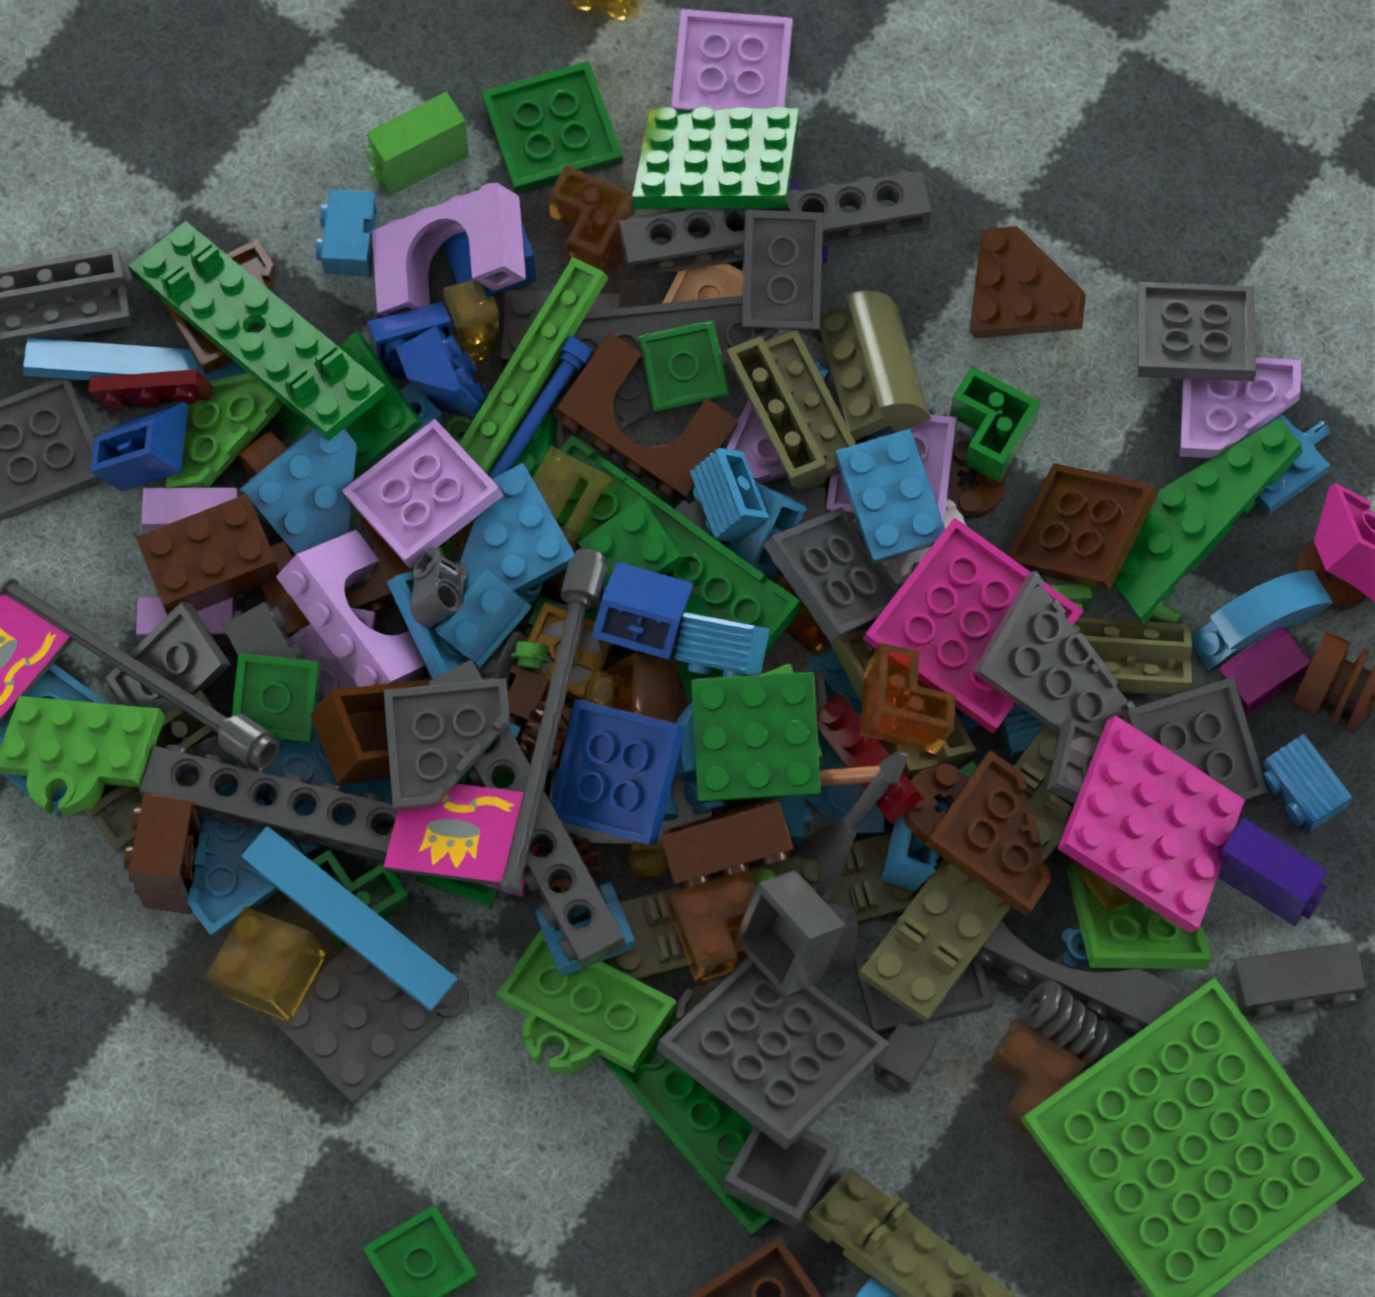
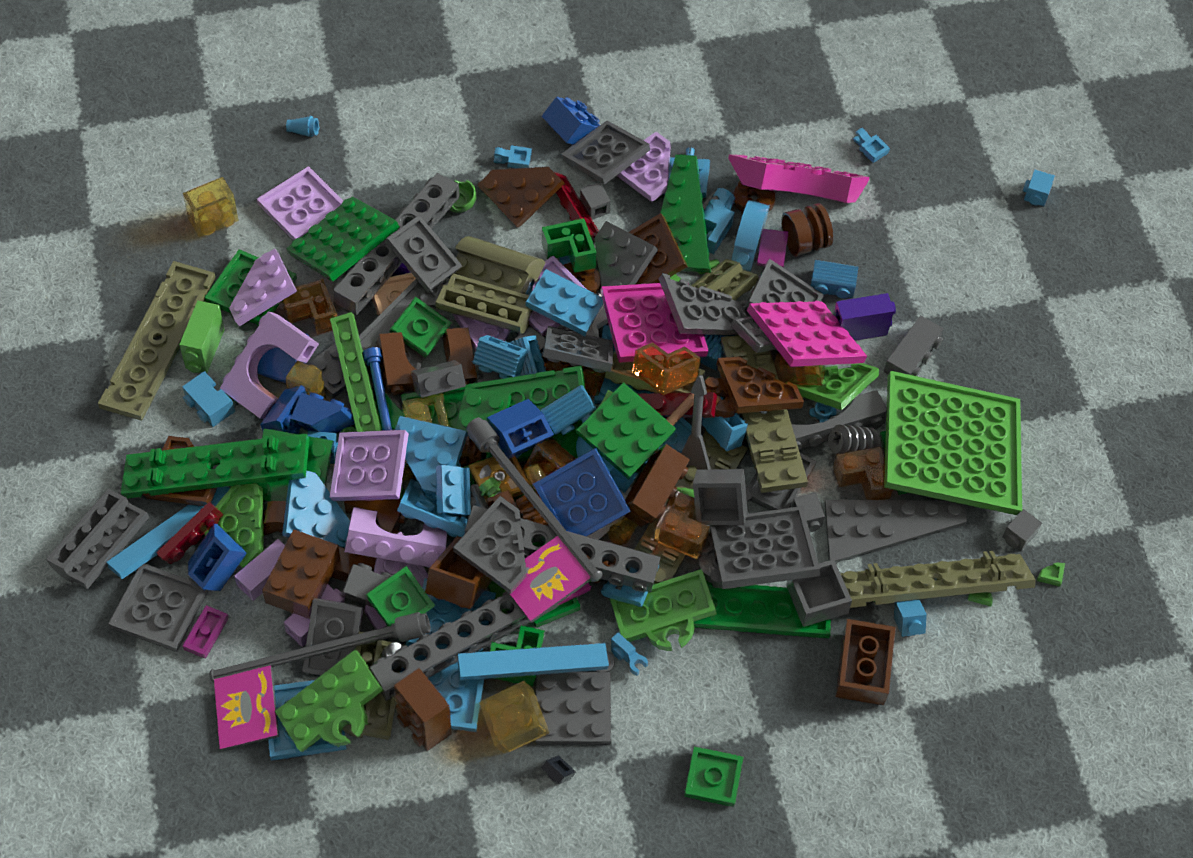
camera: 50 degrees left, 10 degrees down
(52, 526) = (205, 632): none -> magenta plate
(255, 1075) = (558, 770): none -> black plate
(333, 113) = (148, 359): none -> olive piece
(436, 587) = (421, 493): dark grey piece -> none
(484, 1008) = (624, 650): none -> dark azure plate
(554, 142) = (263, 288): none -> lavender plate
(621, 456) = (438, 378): none -> dark grey brick
(945, 229) = (466, 198): none -> bright green hair
(978, 1157) = (874, 525): none -> dark grey wing
(1046, 500) = (621, 256): none -> dark grey plate
(1072, 377) = (574, 206): none -> dark red plate
(1073, 236) = (516, 157): none -> dark azure plate
(1108, 387) = (595, 200): none -> dark grey brick
(1205, 244) = (570, 119): none -> blue slope
(1244, 557) = (718, 217): none -> dark azure plate

